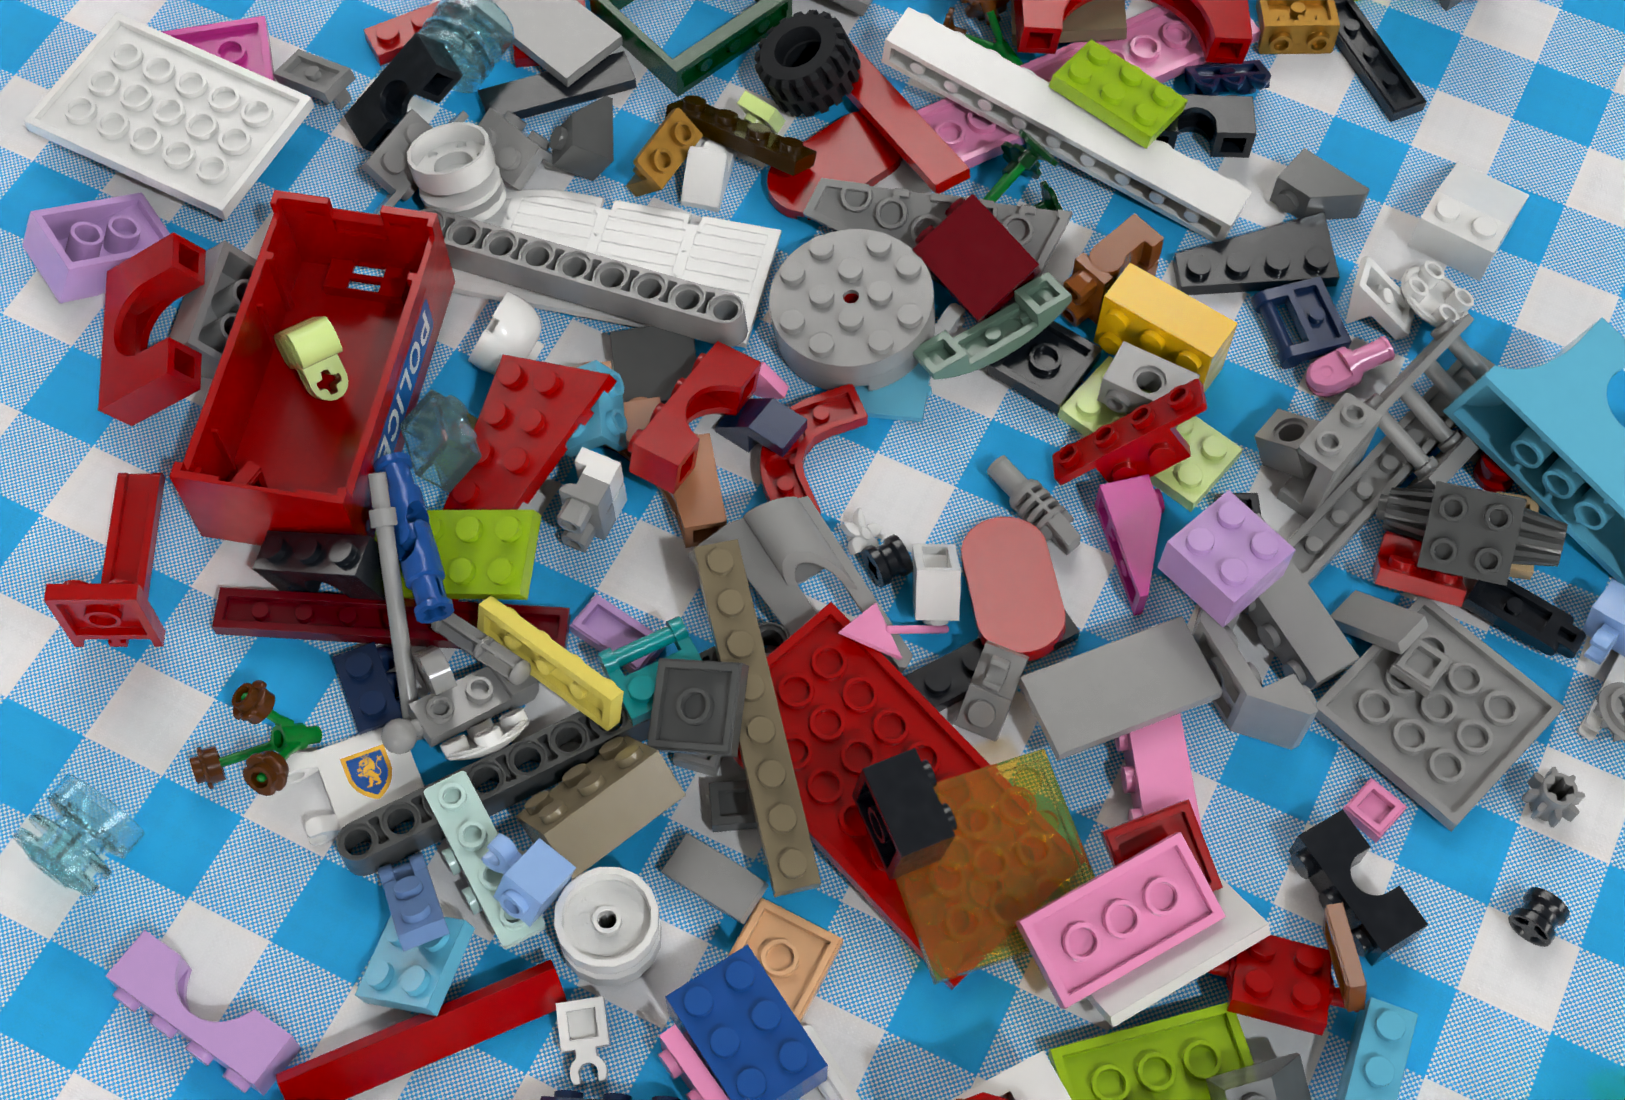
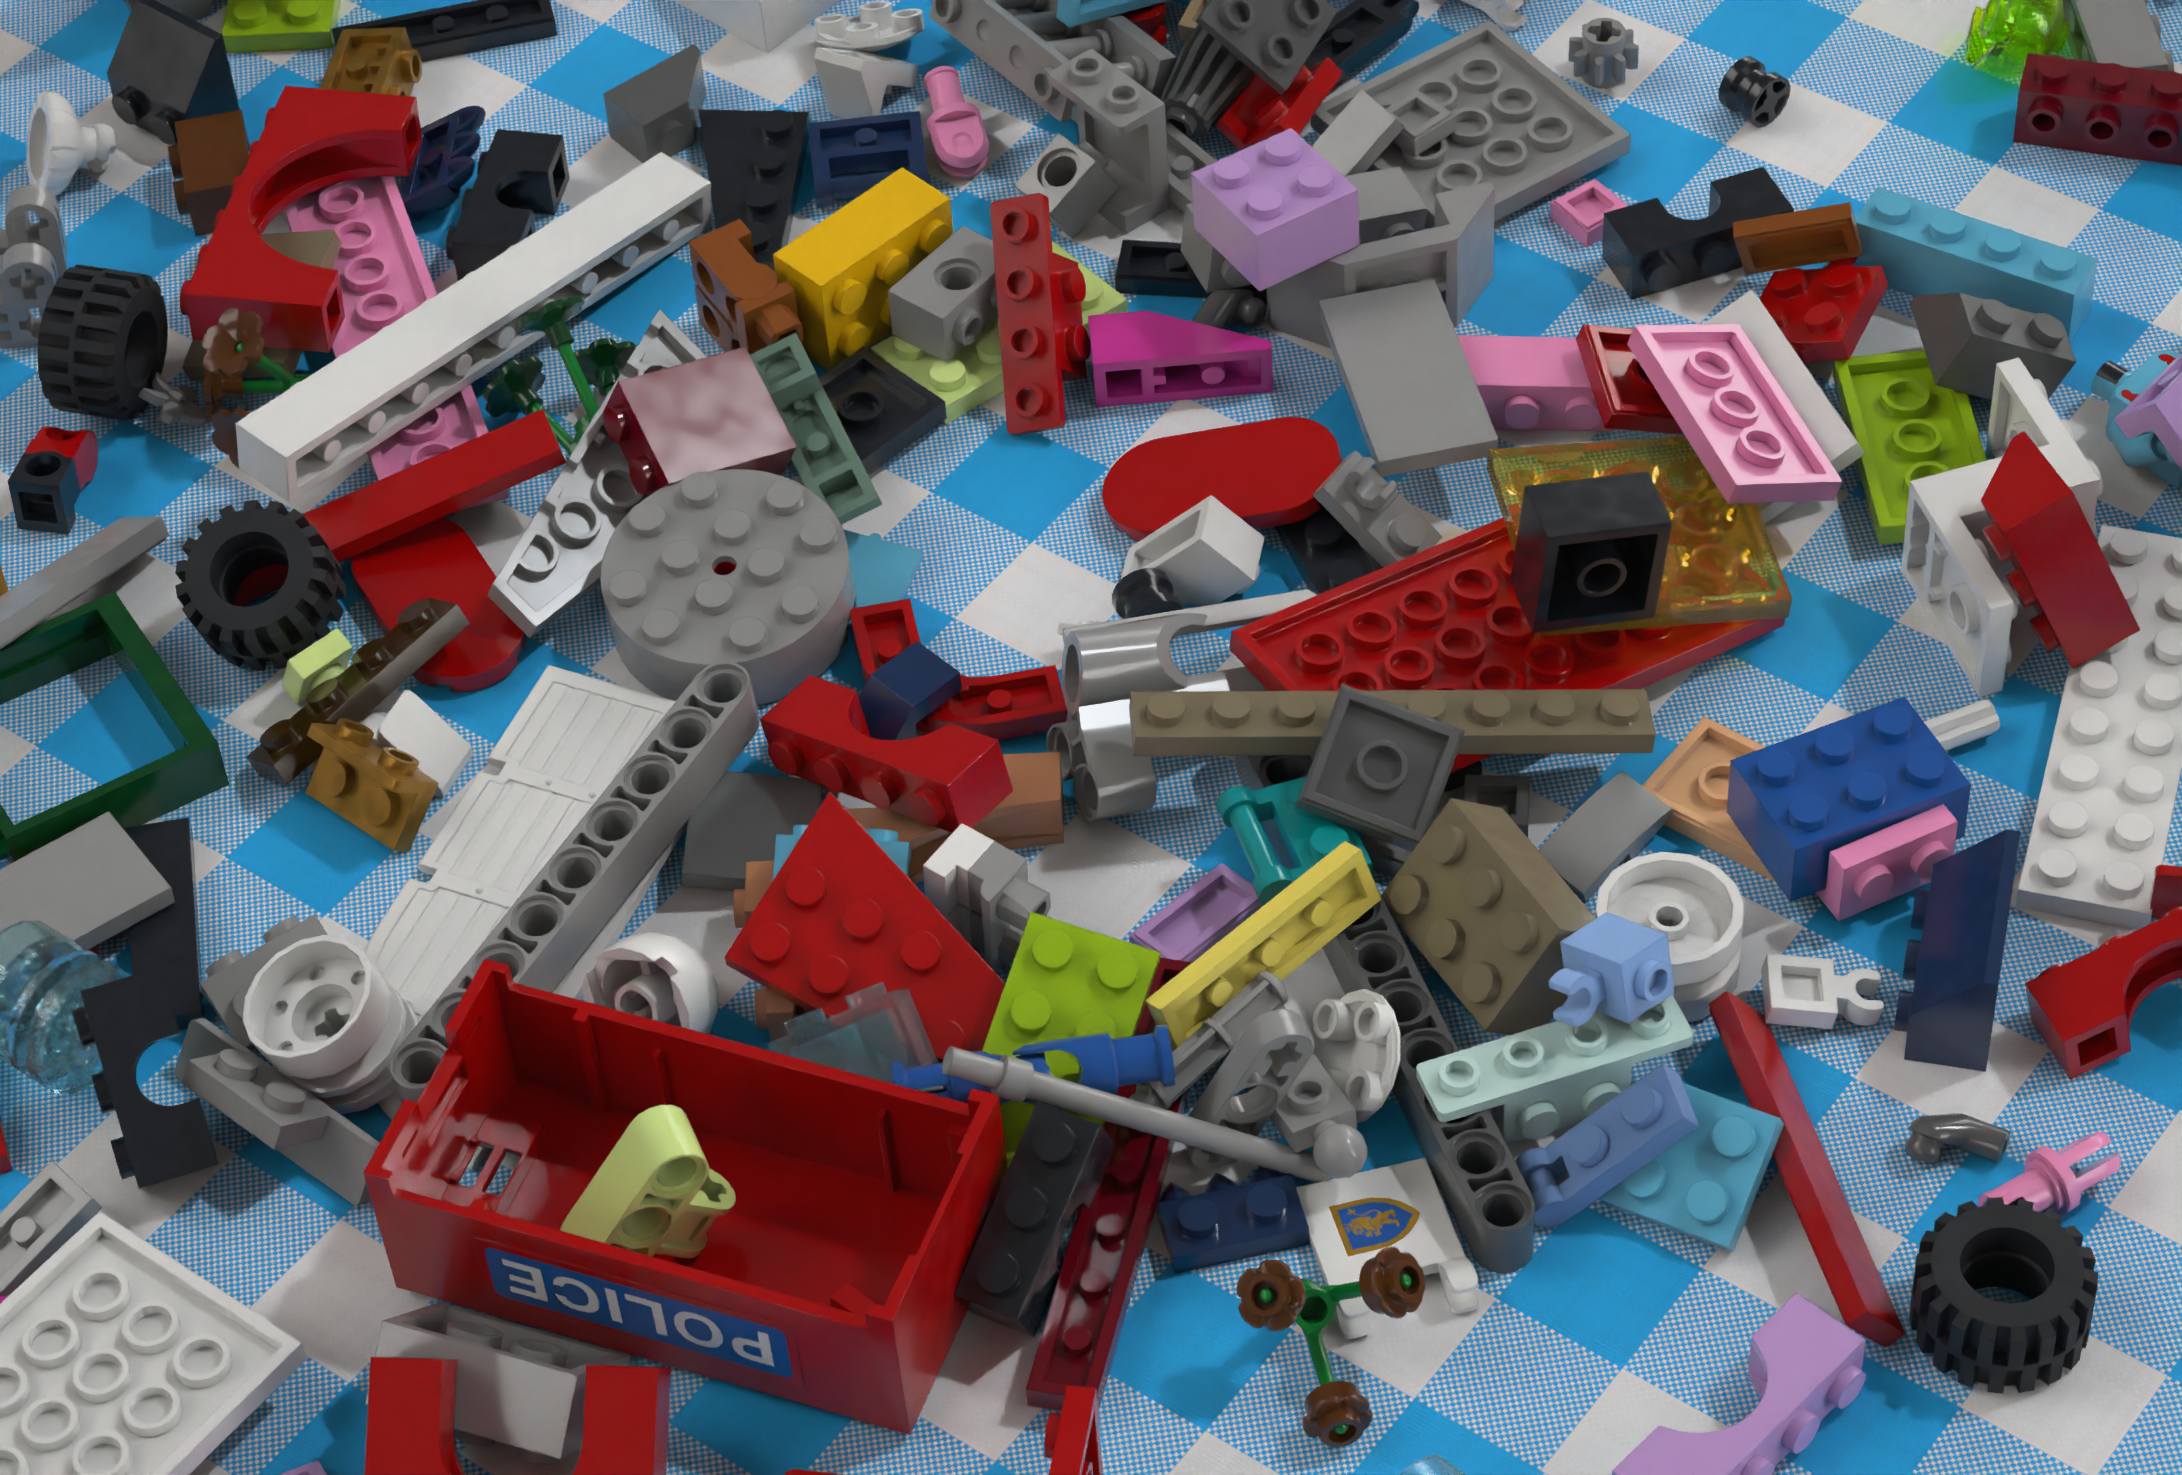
camera: 75 degrees left, 15 degrees down
(585, 140) = (295, 874): dark grey slope -> none
(873, 631) = (1278, 599): bright pink piece -> none
(1035, 504) = (1088, 451): light grey hinge -> none
(1118, 93) = (460, 242): lime plate -> none

